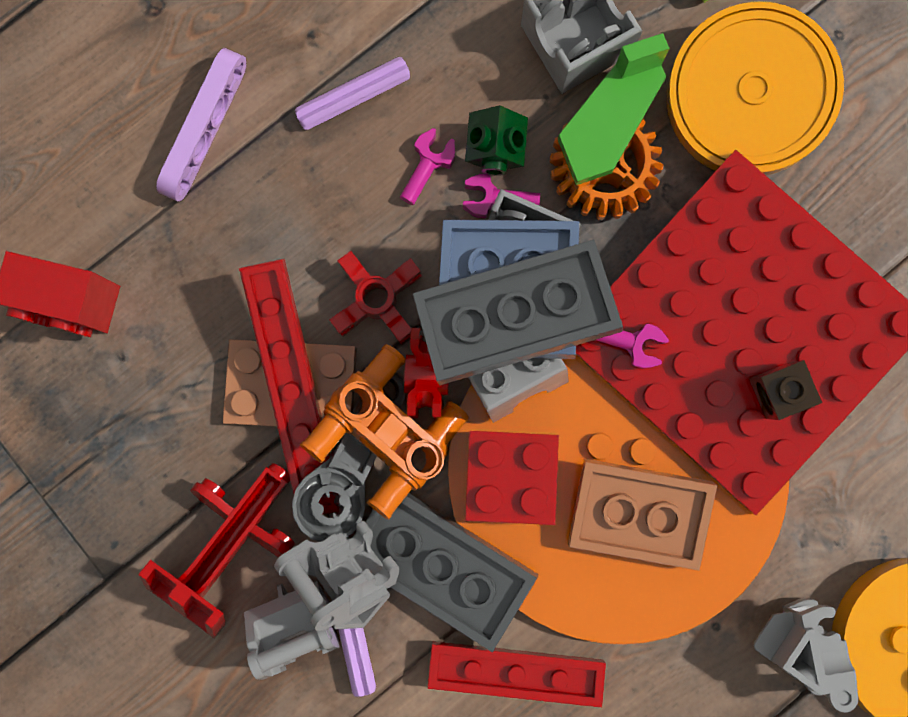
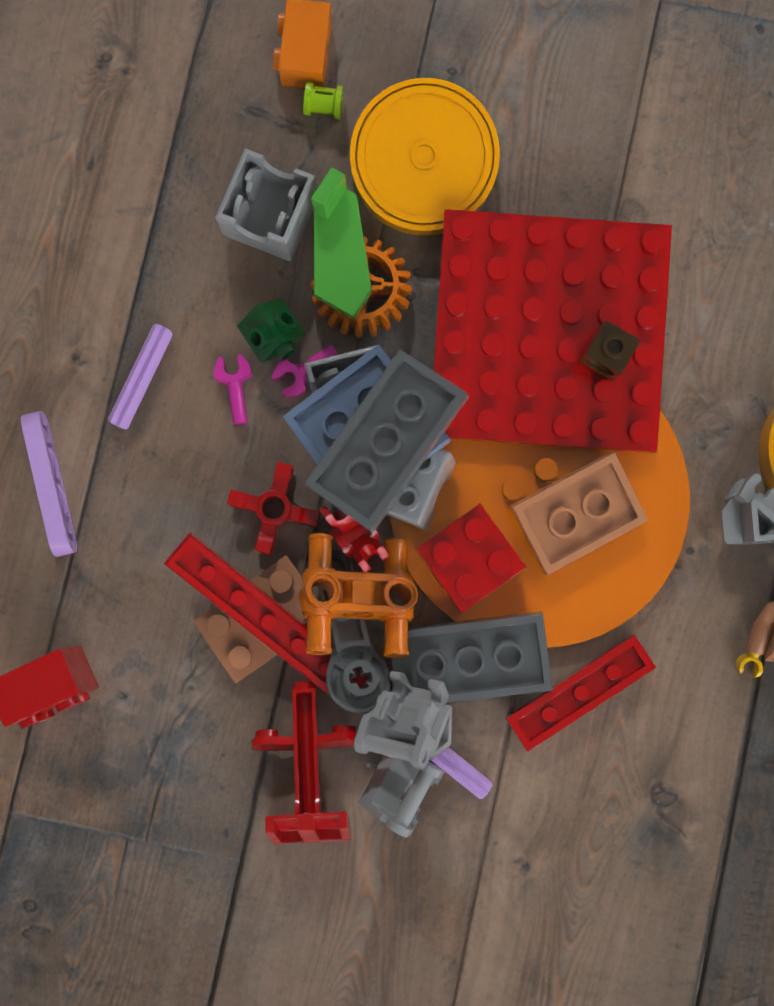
camera: 45 degrees left, 0 degrees up
(633, 344) = (480, 397): dark pink bar -> none

